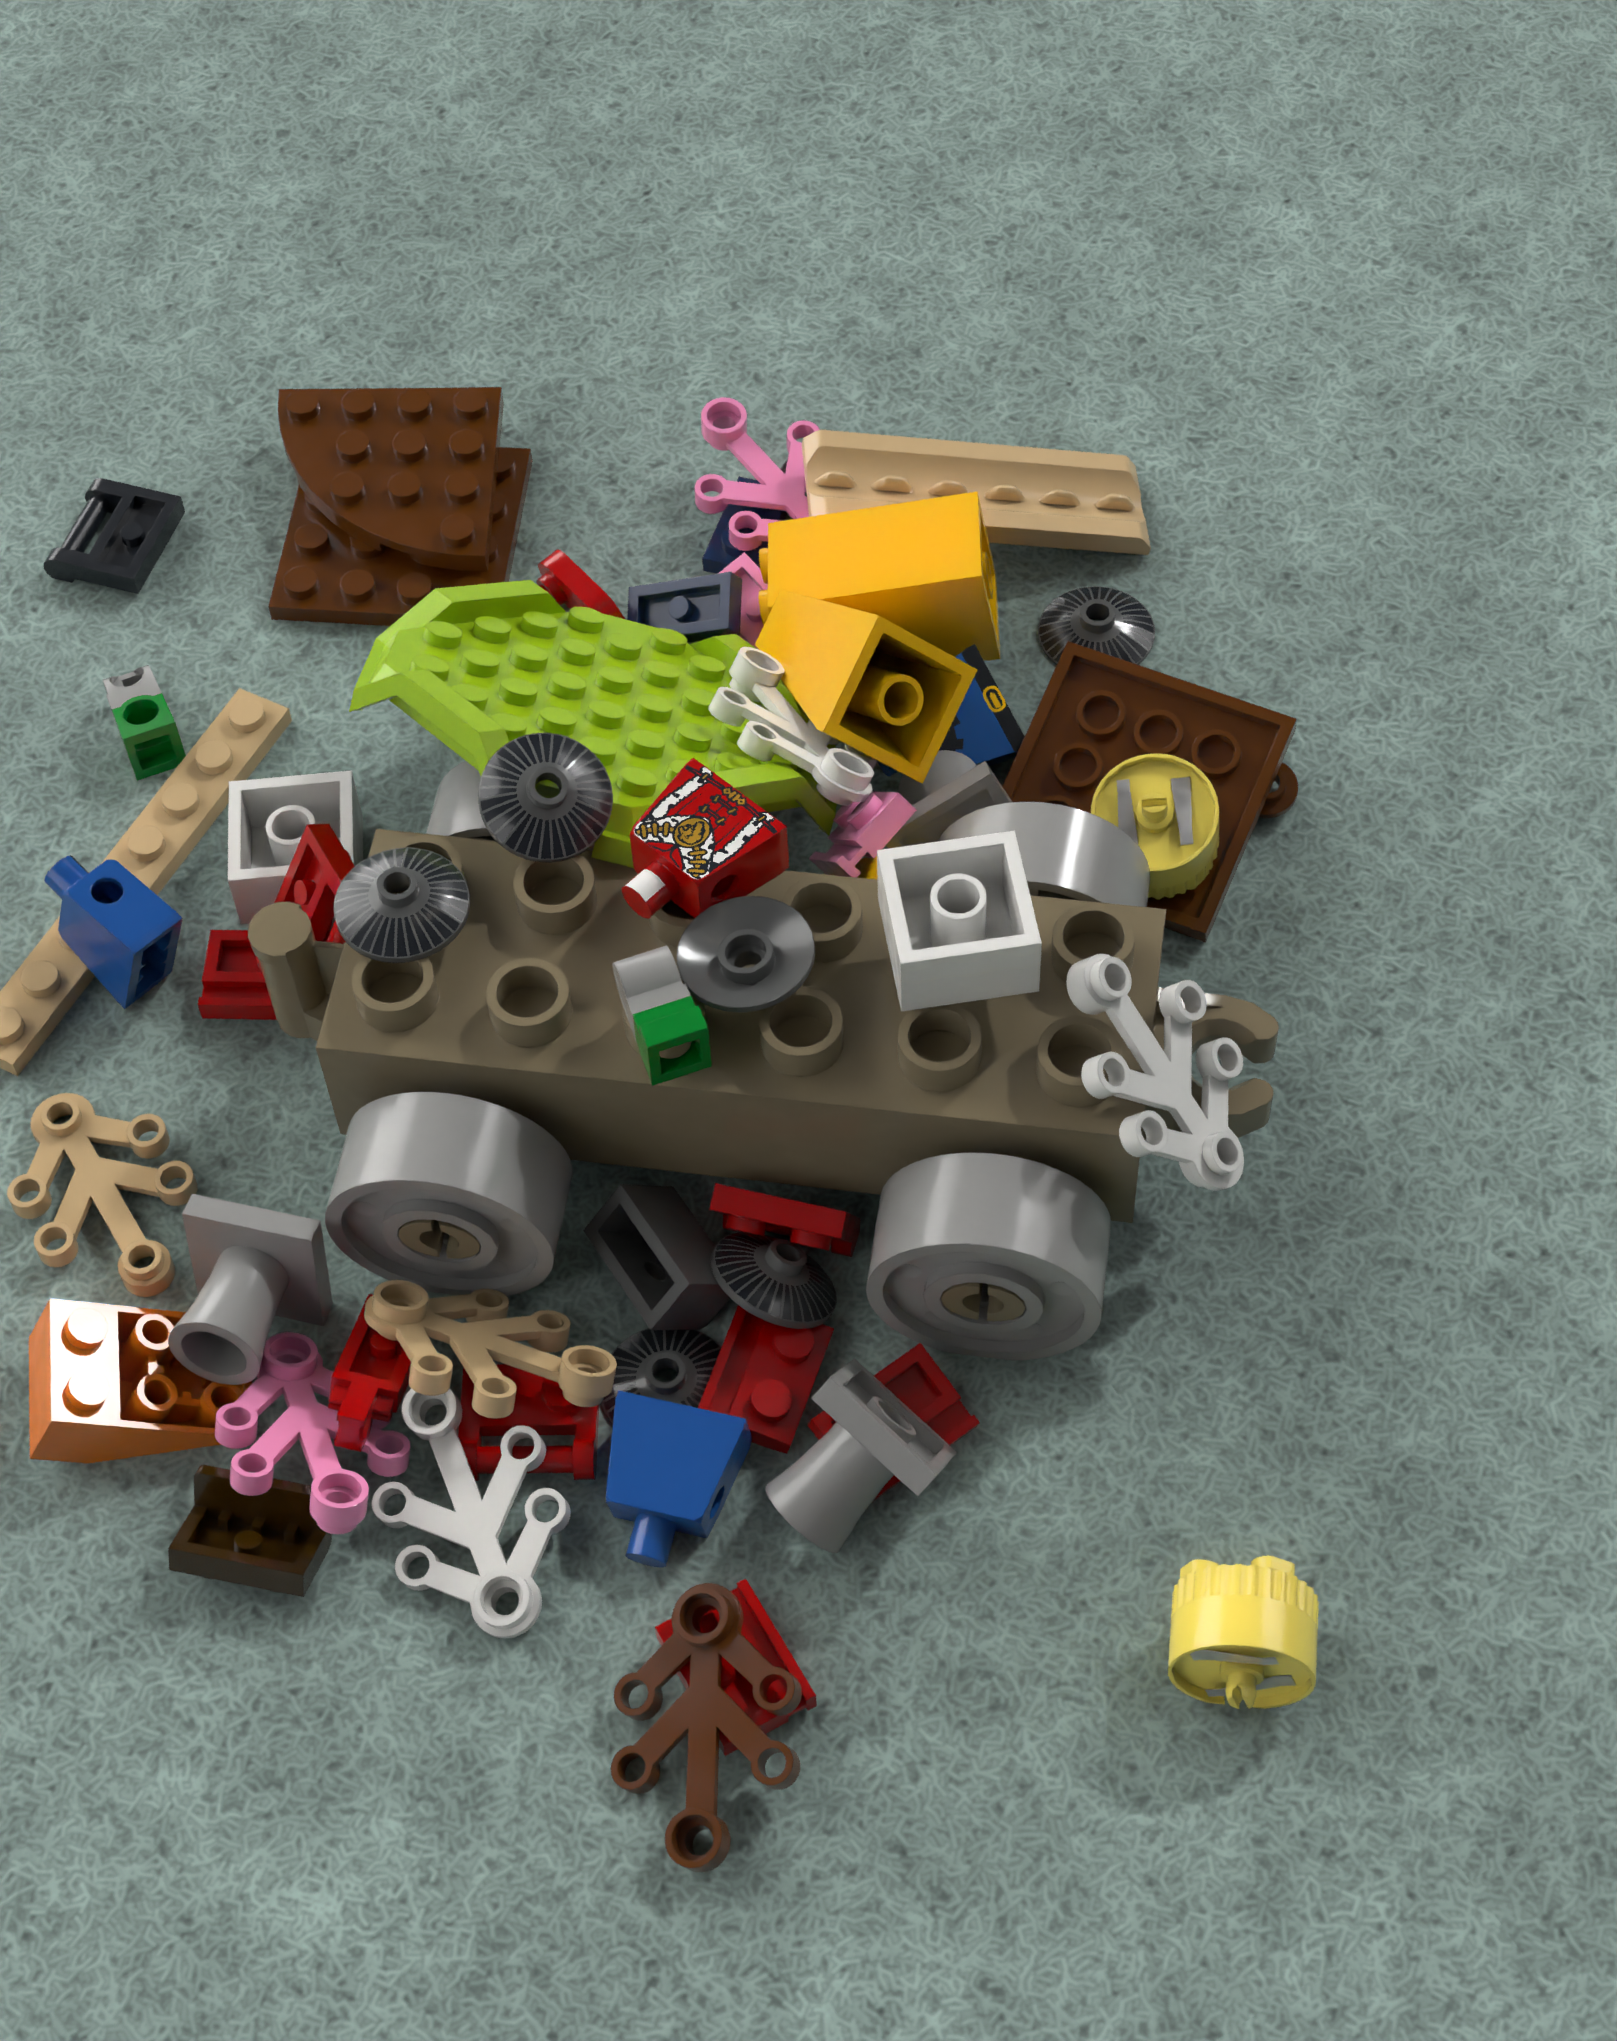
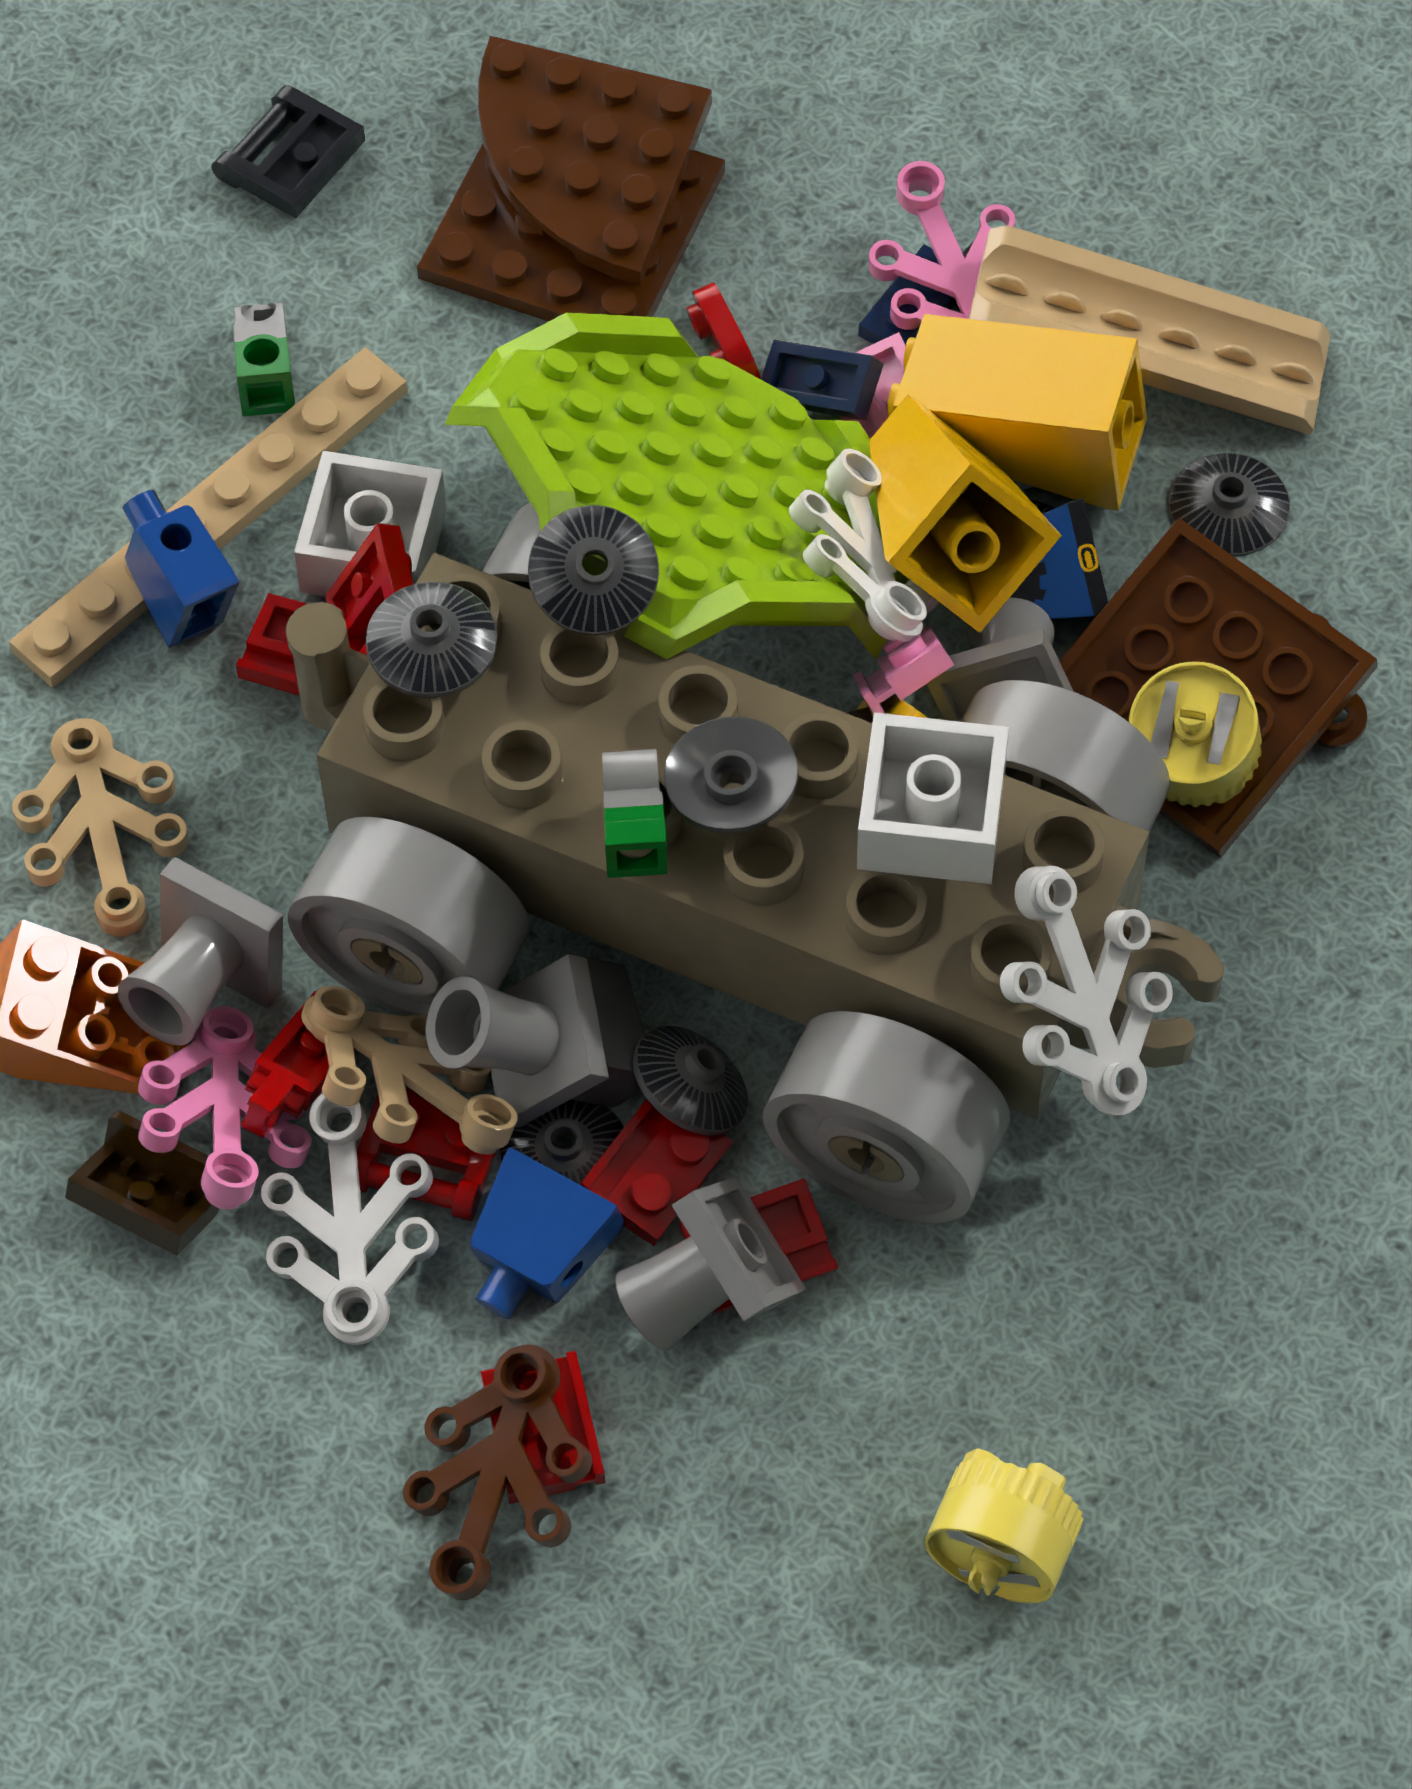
camera: 15 degrees right, 5 degrees up
(608, 1277) = (533, 1036): none -> light grey plant
(702, 845) = (722, 658): torso -> none
(803, 1222) = (736, 1038): red plate -> none

